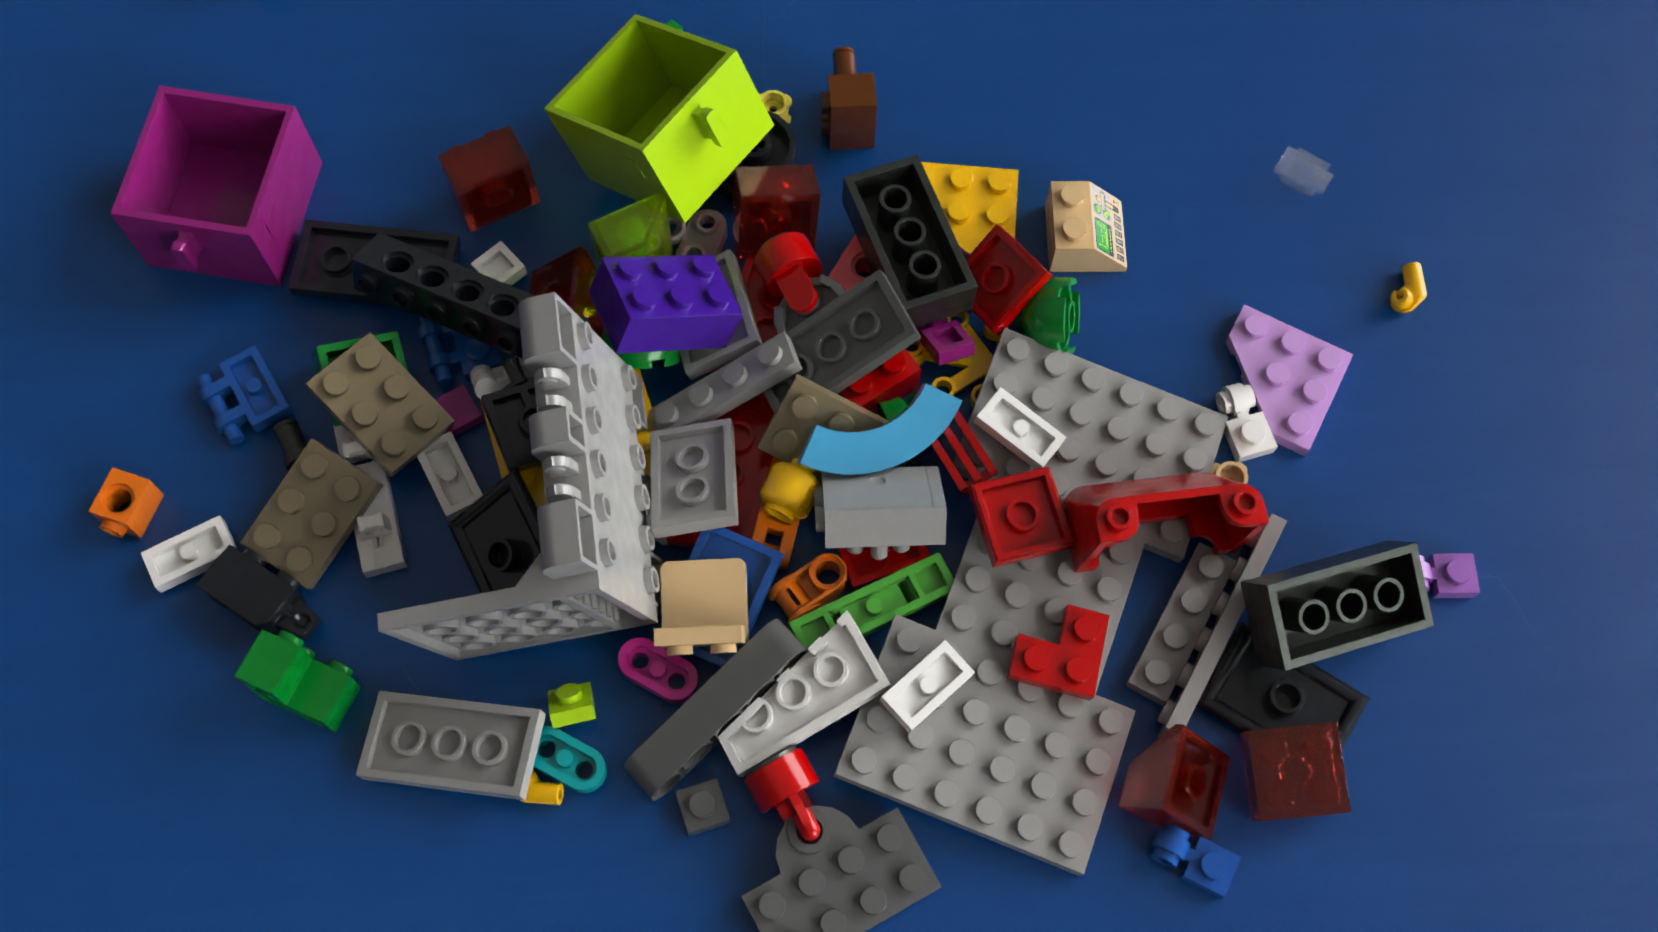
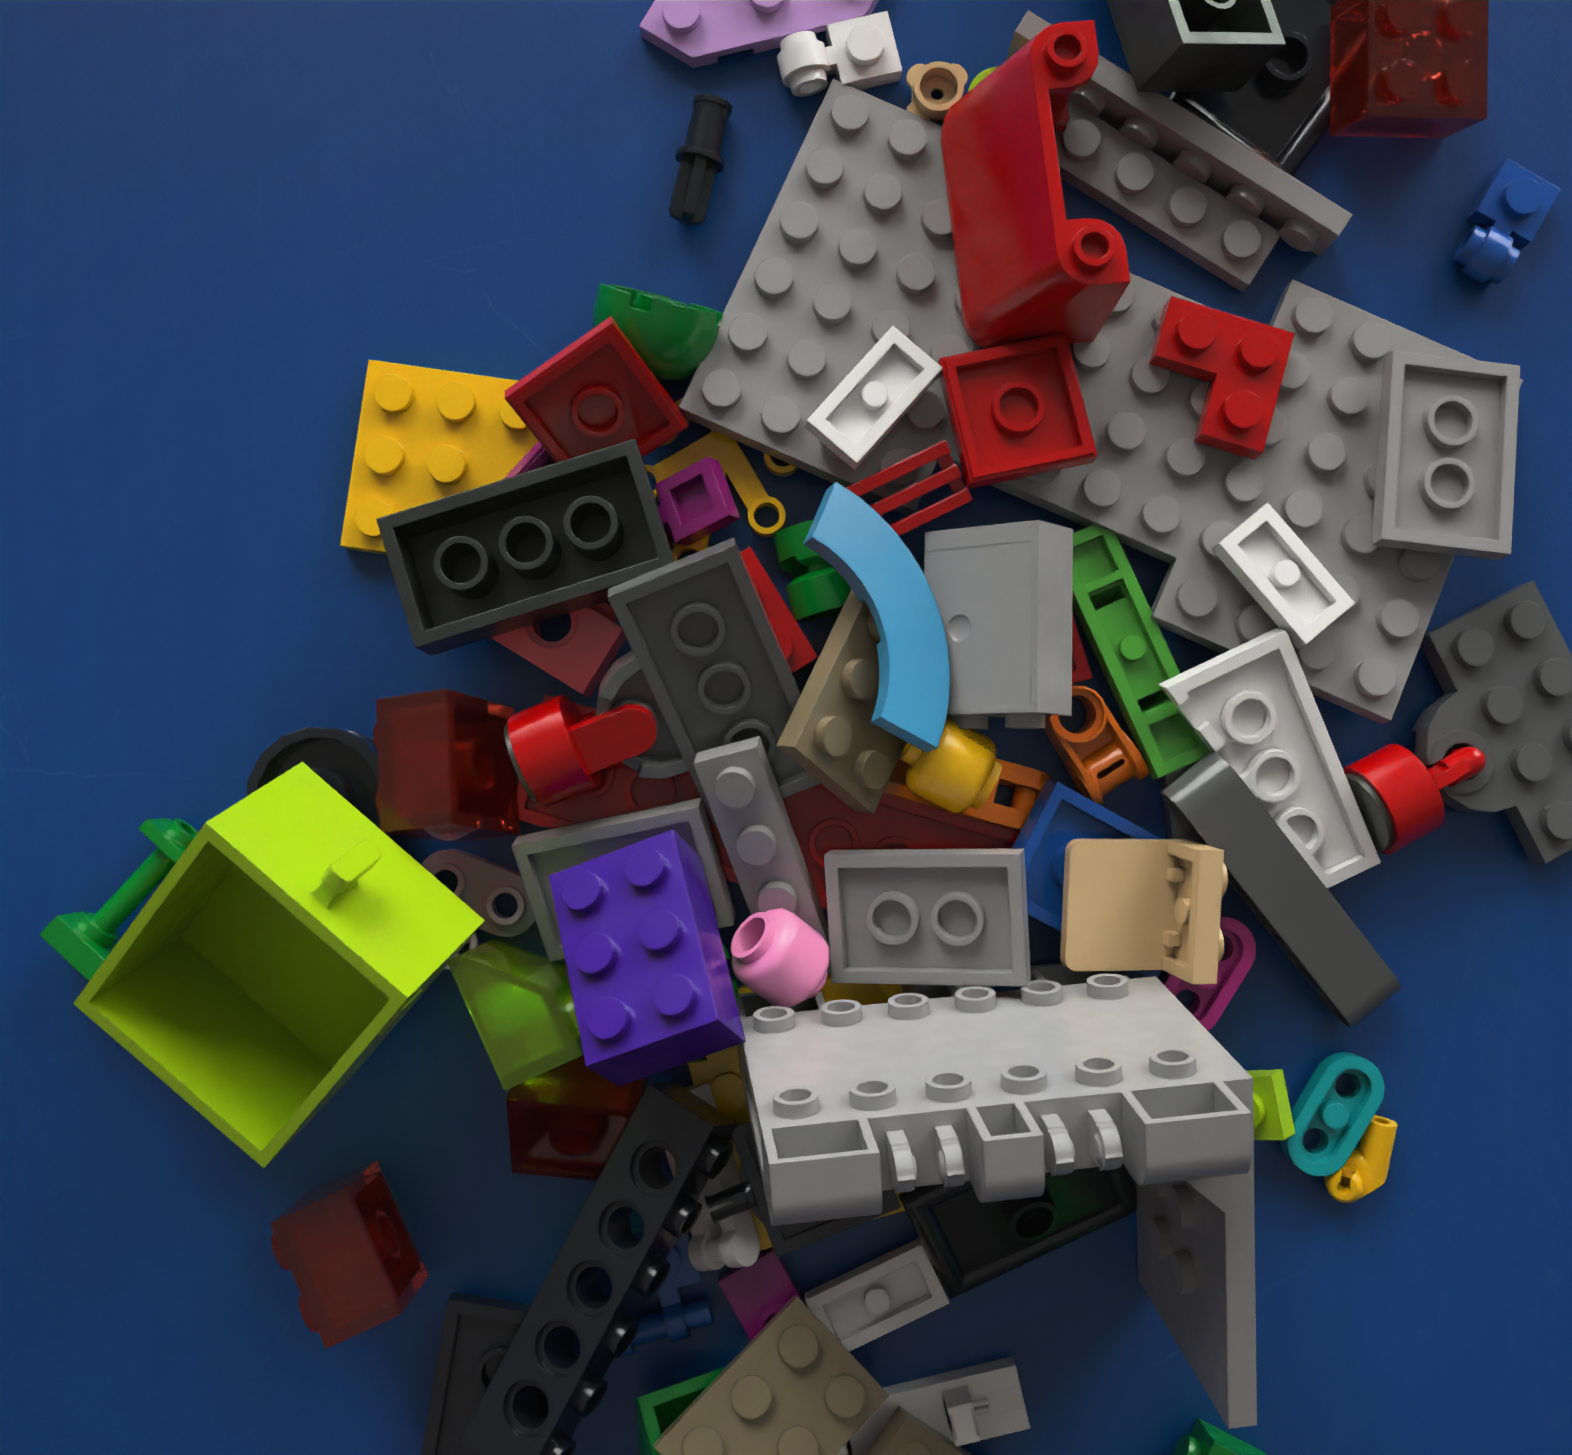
camera: 90 degrees left, 20 degrees up
(451, 745) = (1324, 1277): light grey plate -> none
(500, 265) = (509, 1228): white plate -> none
(665, 392) = (780, 957): none -> bright pink head
(703, 807) = (1402, 913): dark grey plate -> none
(777, 100) = (205, 758): light yellow plate -> none
(849, 104) = (239, 627): reddish brown brick -> none
(1020, 800) = (1446, 455): none -> light grey plate
(1084, 229) = (488, 264): tan slope -> none
(1164, 343) = (700, 159): none -> black axle
(1177, 782) = (1412, 236): clear red slope -> none

